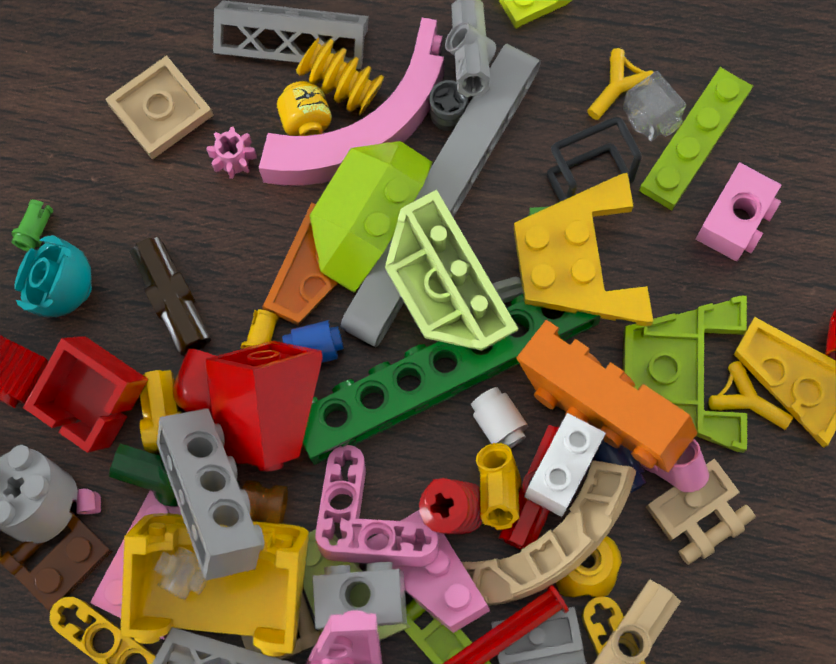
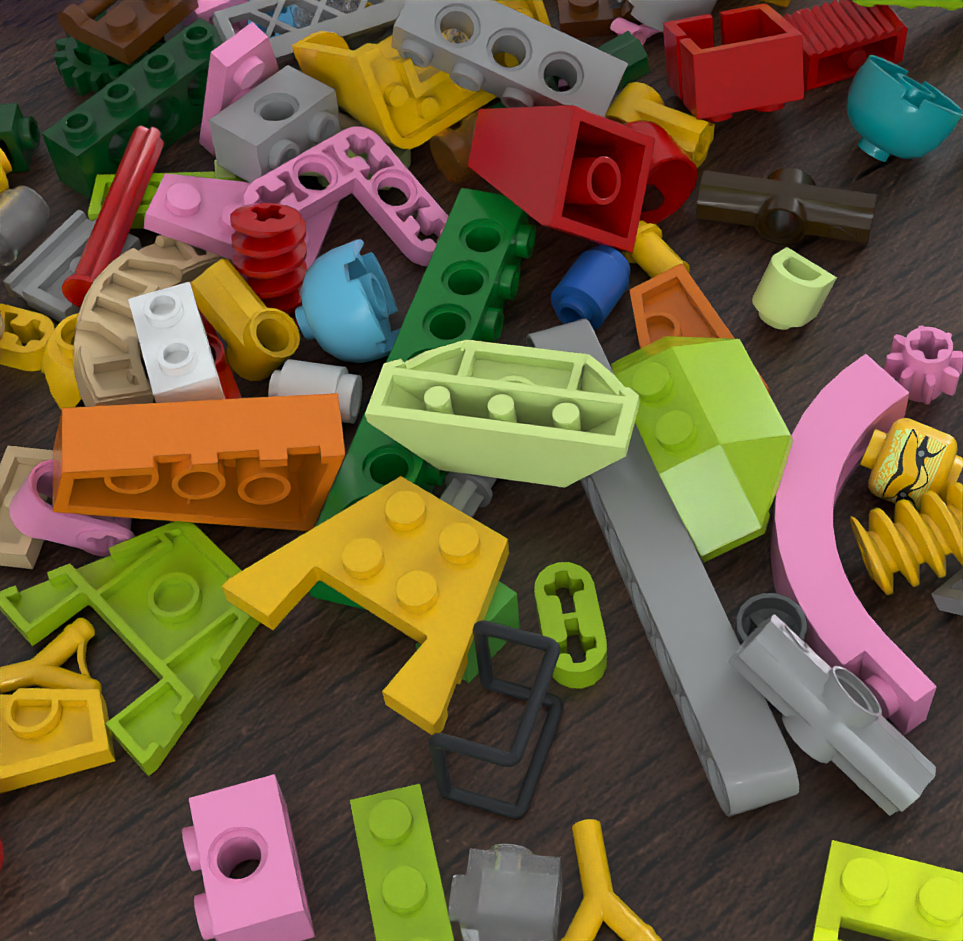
camera: 135 degrees right, 20 degrees down
(233, 244) = (791, 290): none -> yellowish green plate
(440, 442) = (348, 305): none -> medium azure cylinder
(517, 200) = (584, 622): none -> lime beam

